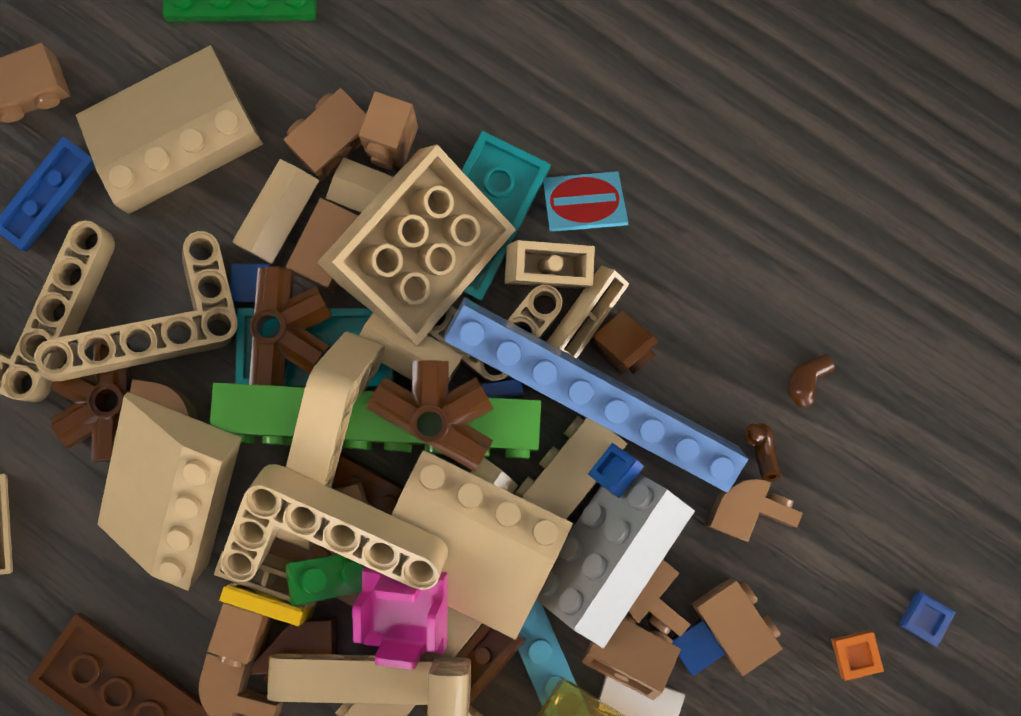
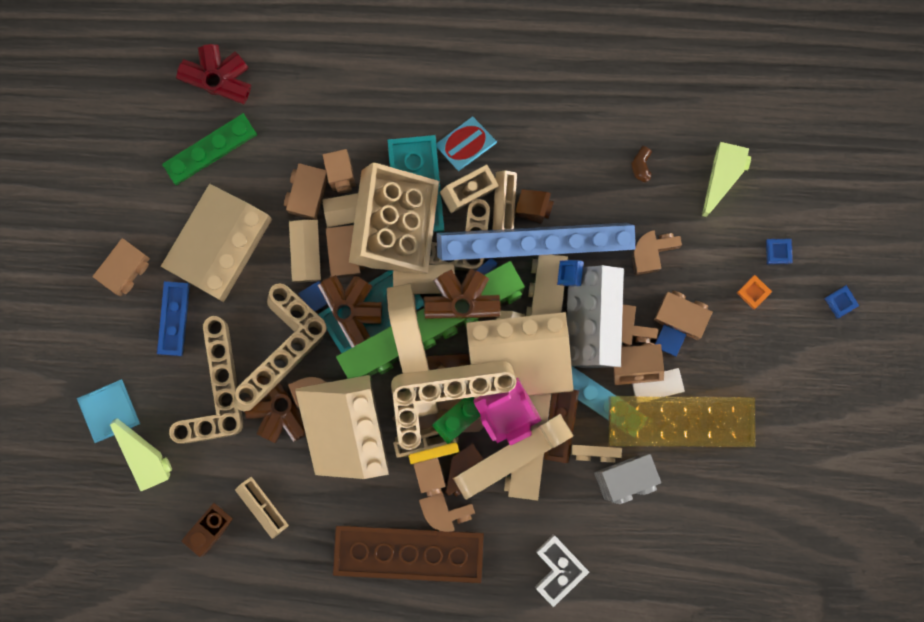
camera: 30 degrees left, 0 degrees up
(763, 443) = (636, 211): reddish brown arm -> none
(925, 458) = (727, 168): none -> yellowish green slope

